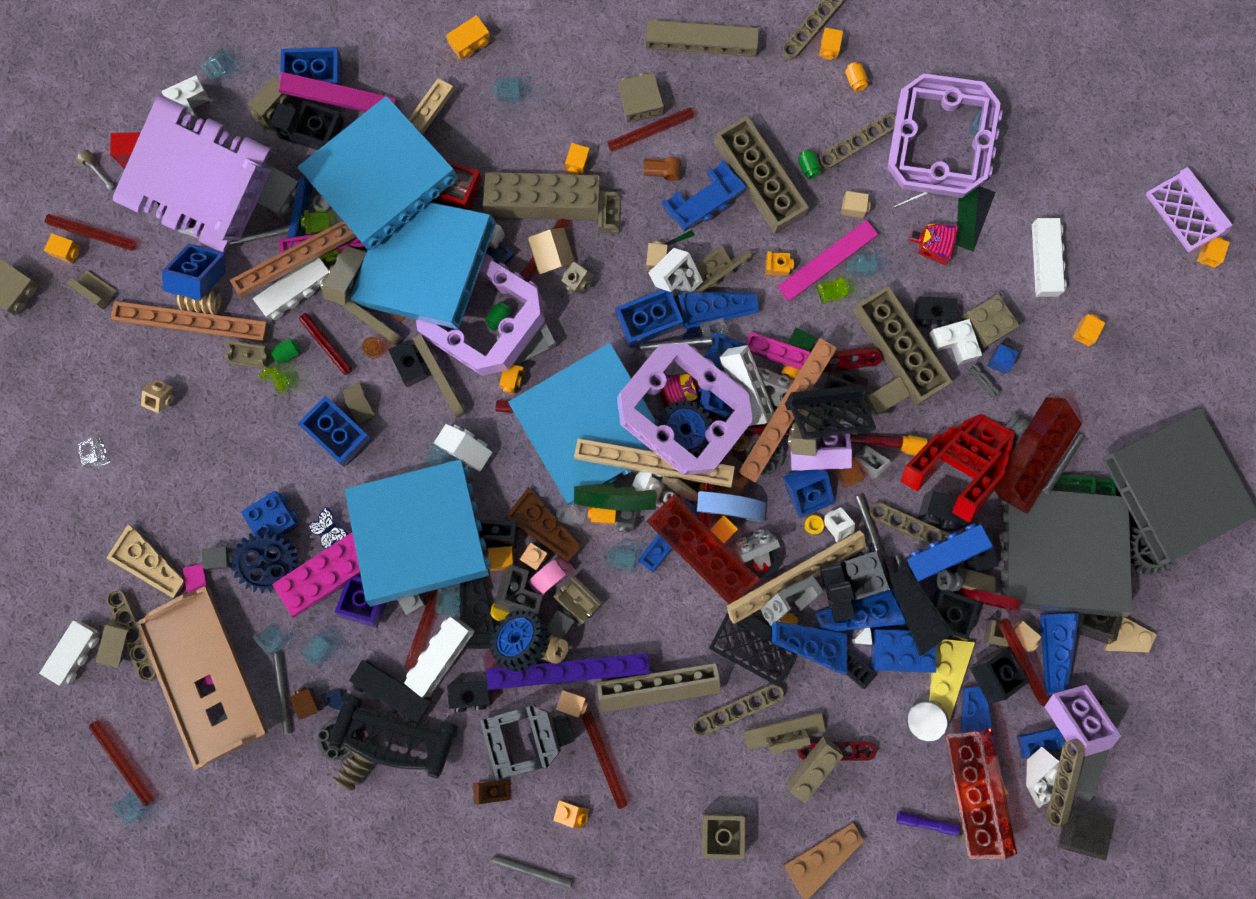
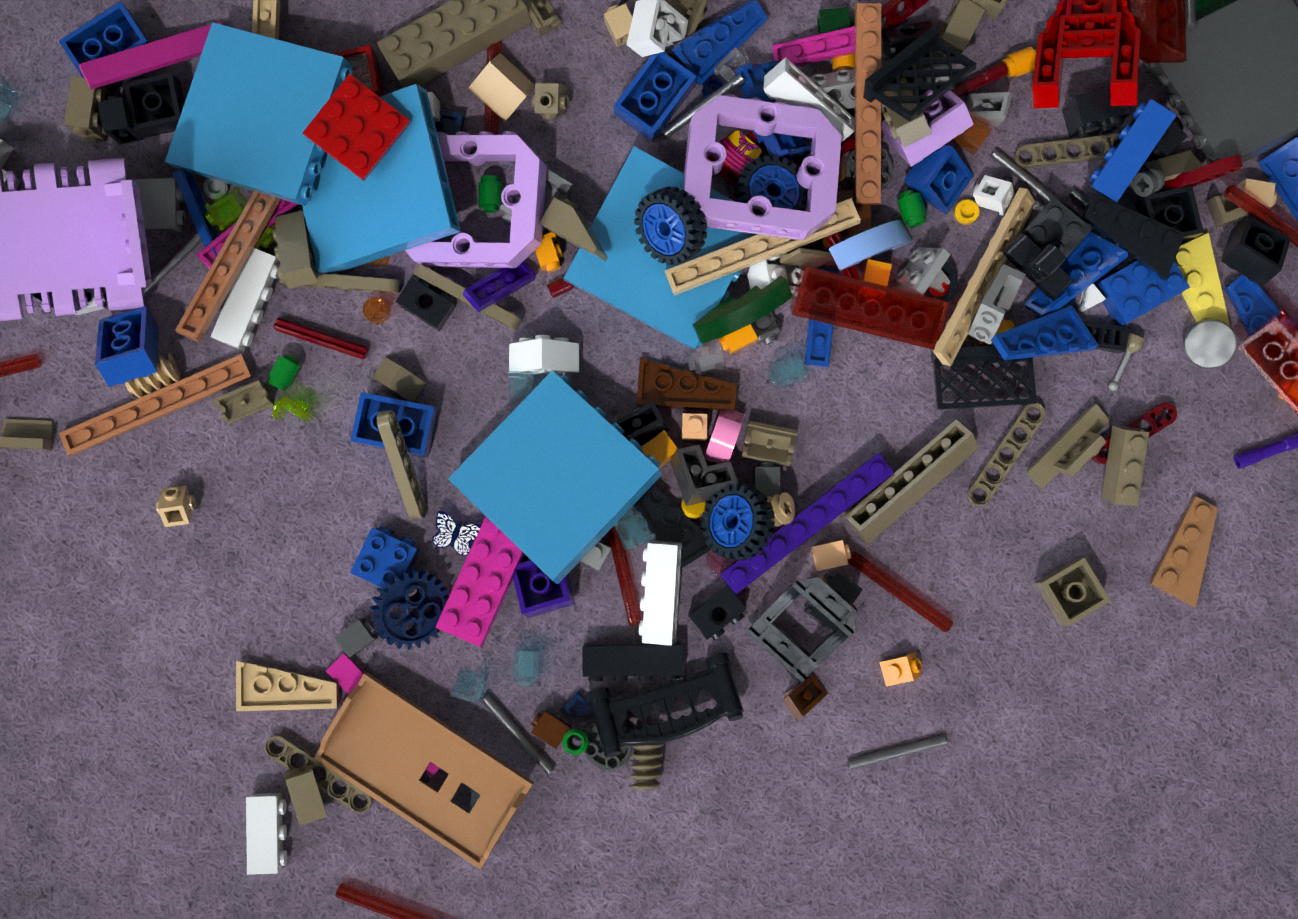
camera: 30 degrees left, 5 degrees up
(93, 452) = (146, 609): clear brick -> none
(310, 722) = (569, 744): none -> green brick
(320, 460) = (401, 464): none -> dark tan beam
(431, 220) = (356, 127): none -> red plate
(463, 380) = (498, 286): none -> dark purple plate
(535, 371) = (572, 226): none -> dark tan slope
(598, 410) = (670, 225): none -> wheel
(777, 500) = (912, 209): none -> green brick
(873, 688) = (1134, 344): none -> hinge

